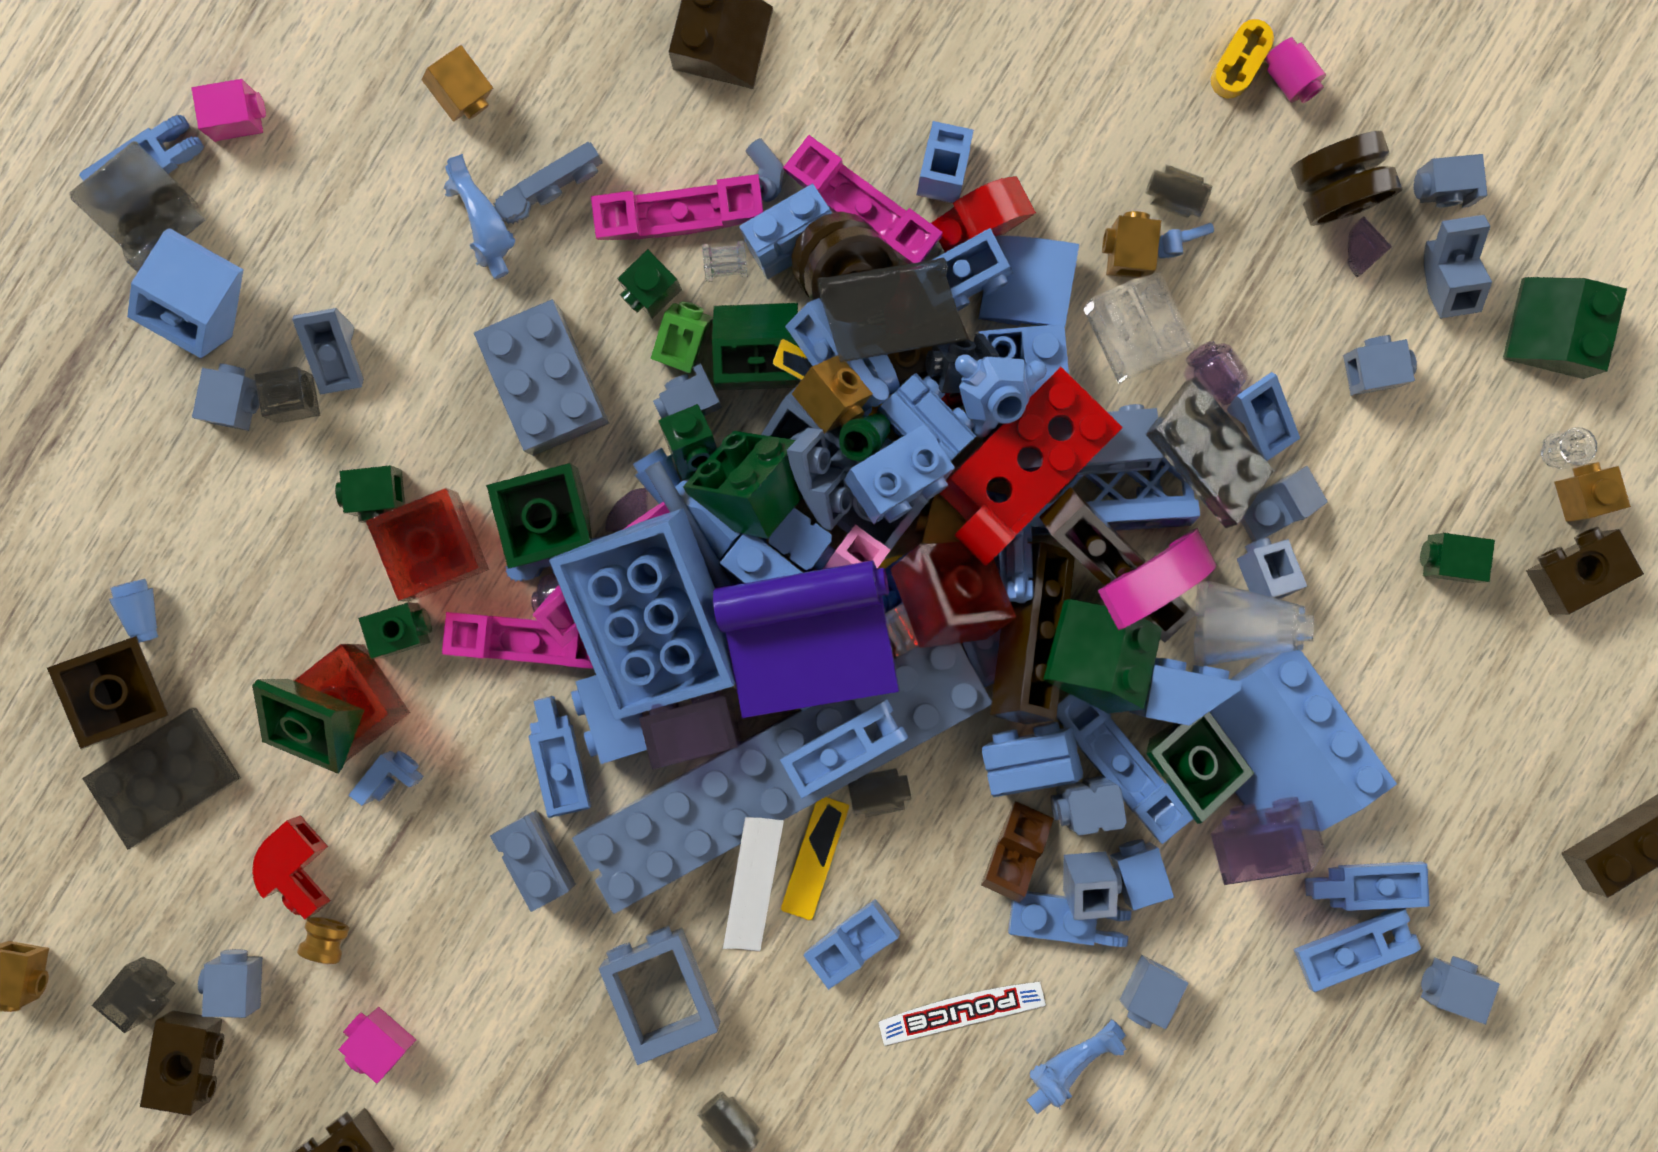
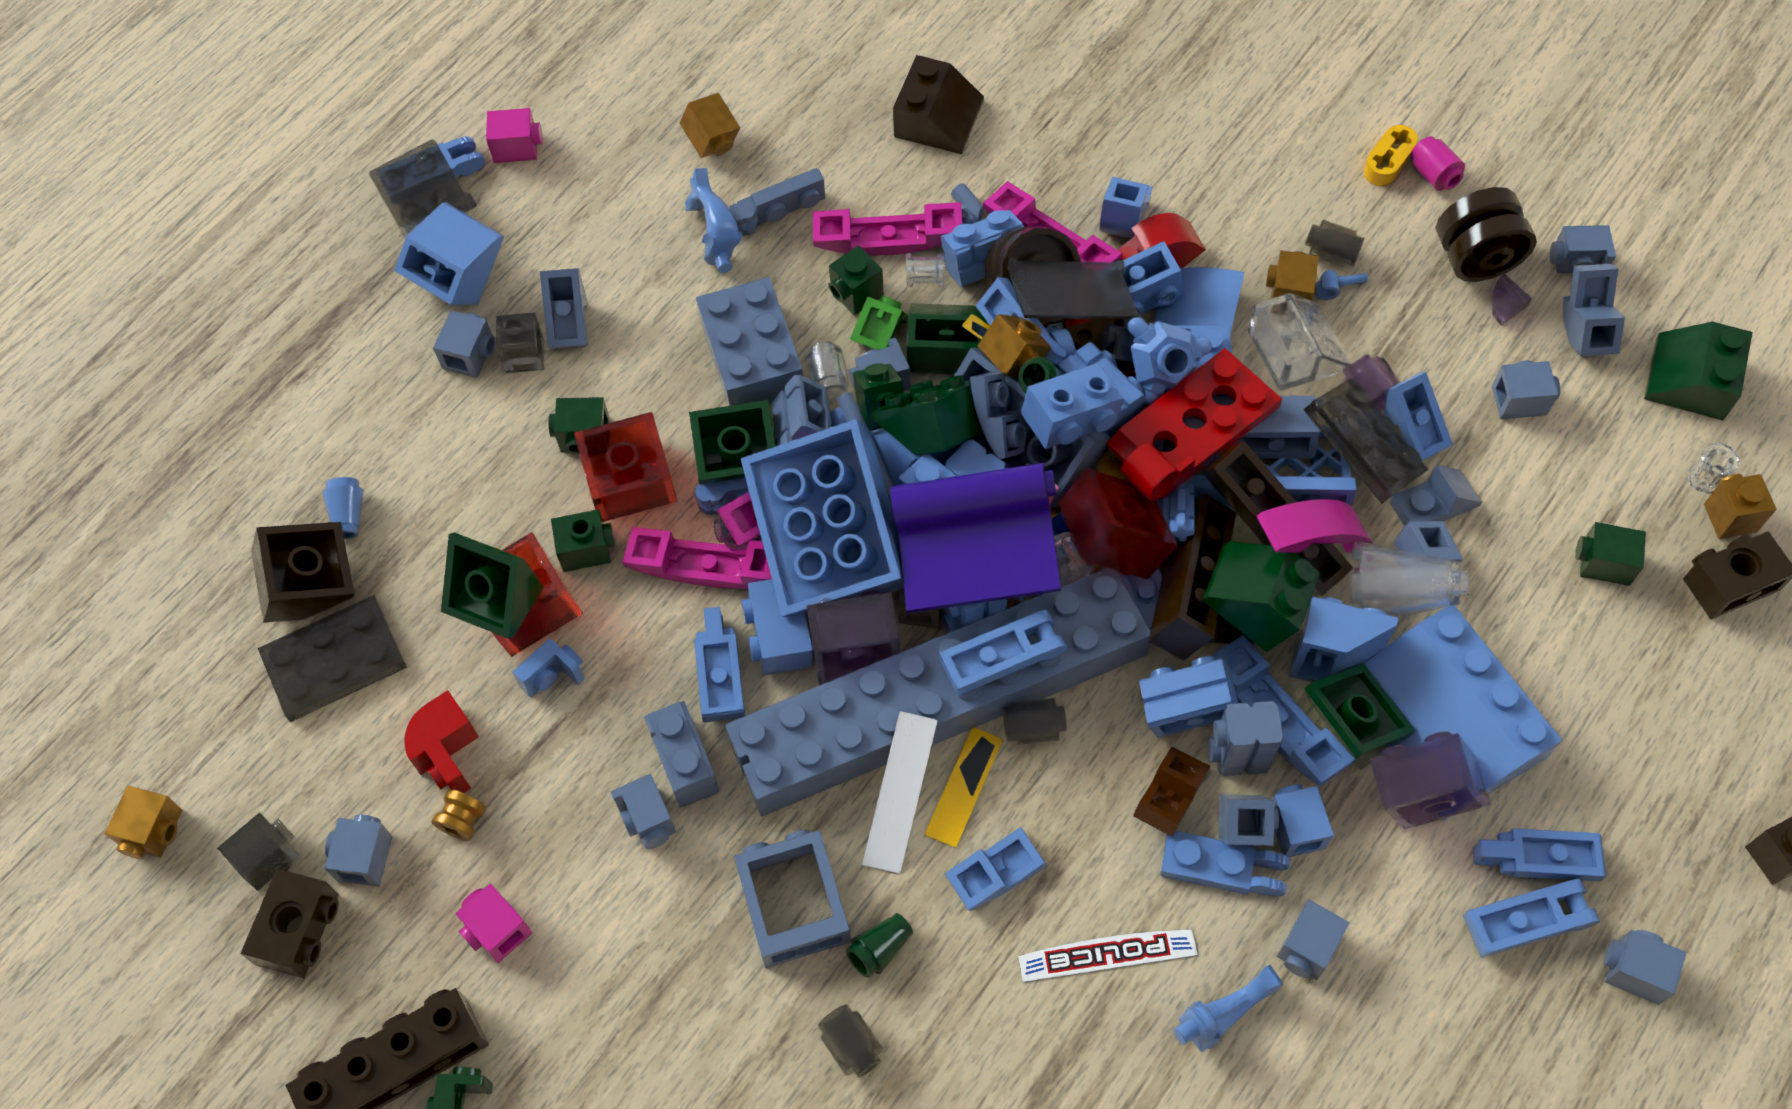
camera: 15 degrees right, 25 degrees down
(506, 922) = (644, 811): none -> sand blue brick
(610, 478) = (800, 410): none -> sand blue brick
(630, 401) = (827, 367): none -> clear brick
(746, 1031) = (877, 946): none -> dark green cone

